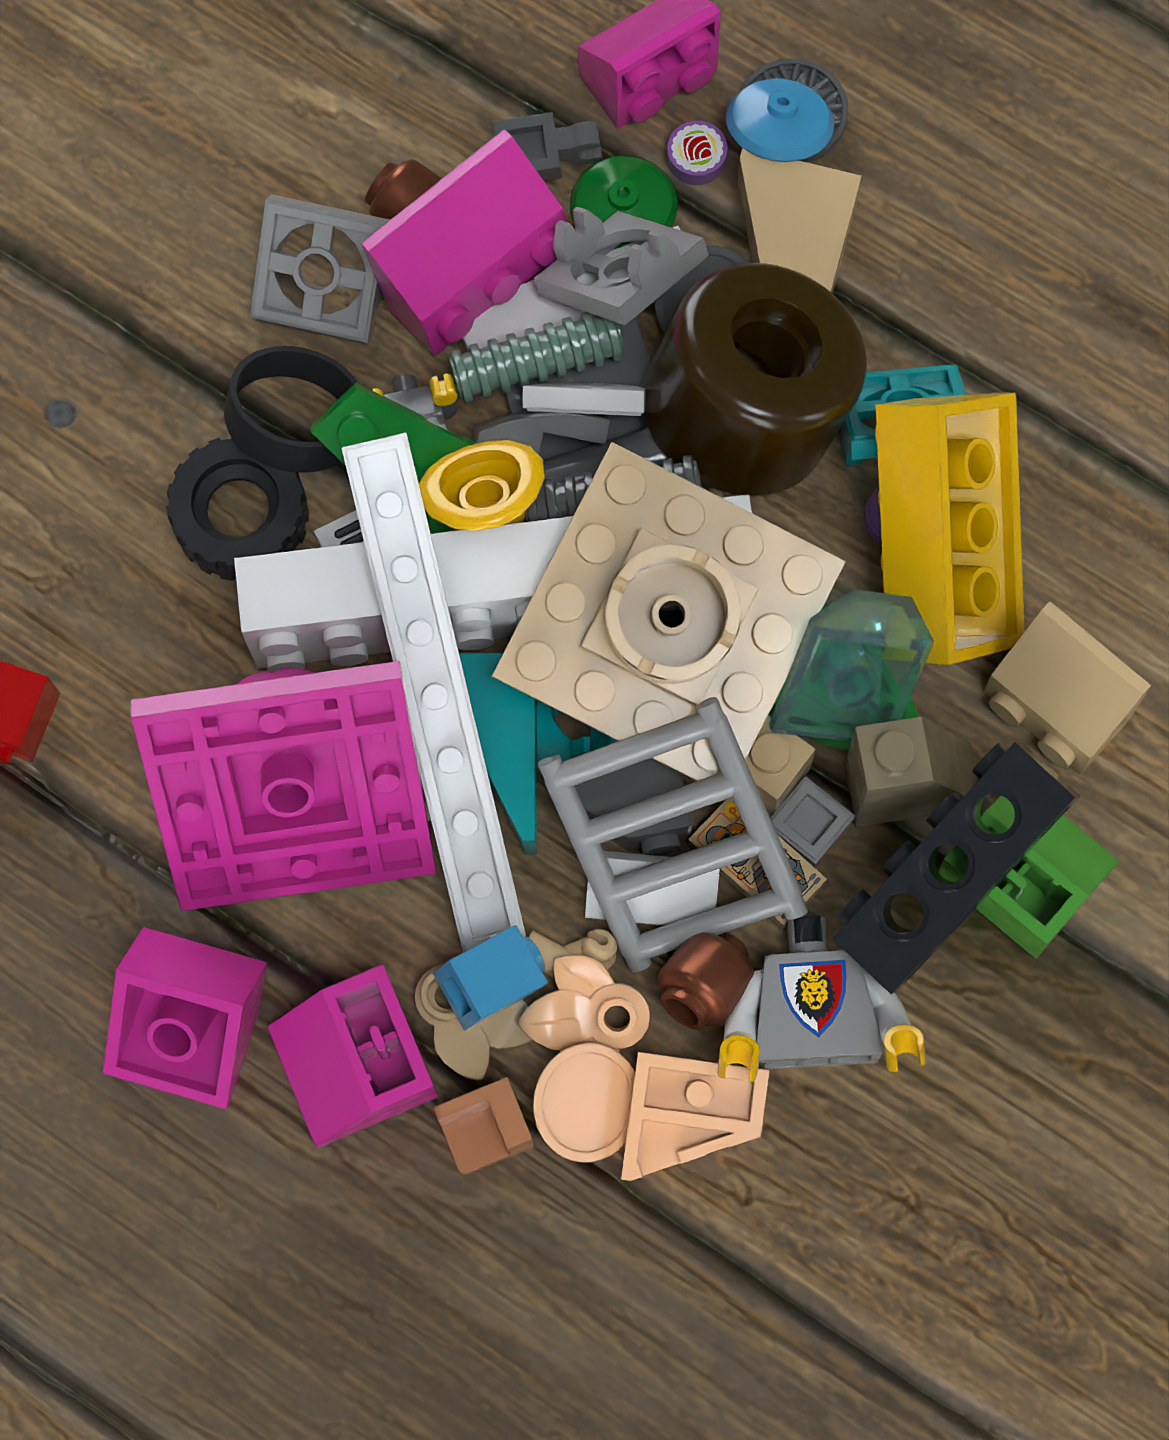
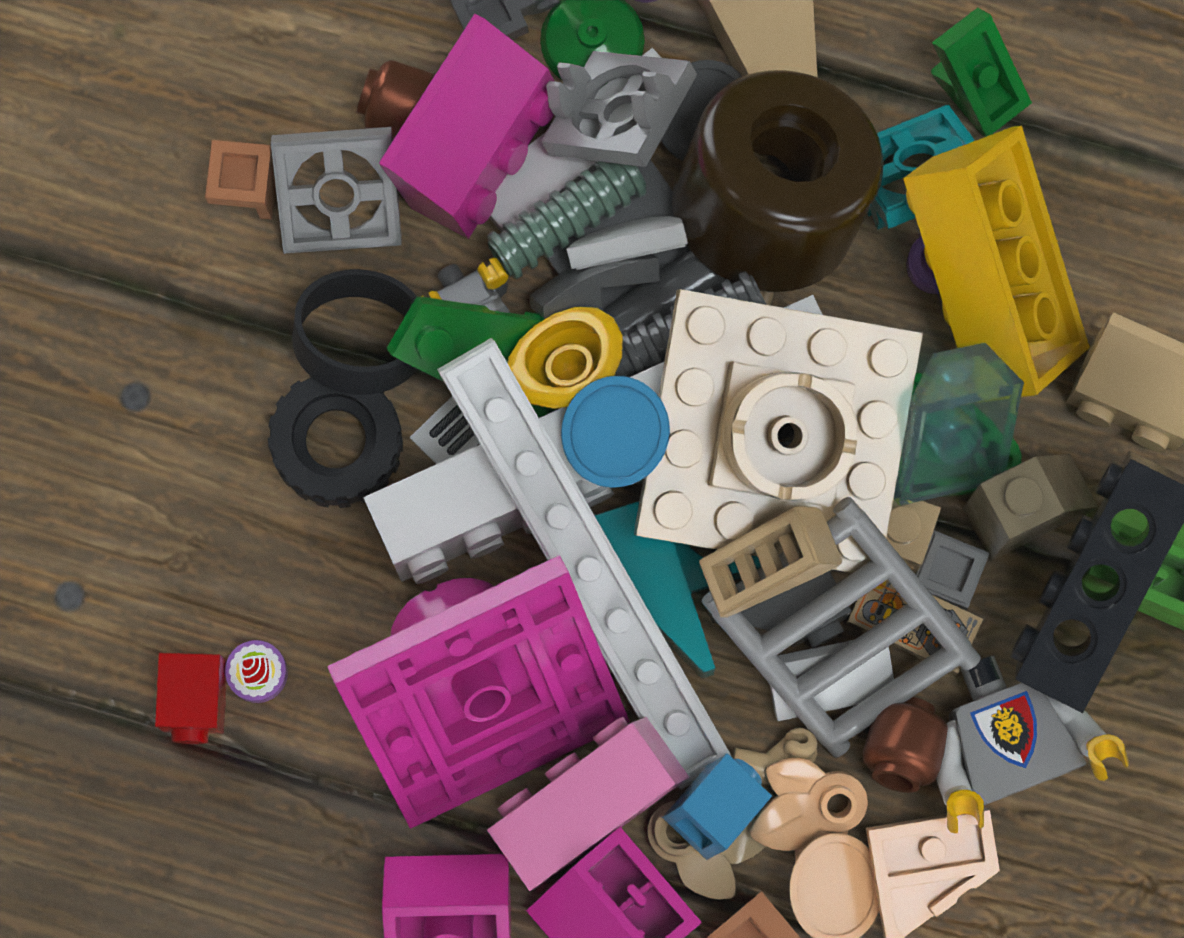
camera: 20 degrees left, 5 degrees up
(83, 710) = (256, 671): none -> tile
(229, 227) = (241, 176): none -> nougat panel
(362, 926) = (586, 800): none -> bright pink brick
(502, 564) = (615, 431): none -> dark azure piece
(656, 742) = (806, 546): none -> tan slope
(997, 337) = (979, 73): none -> green slope

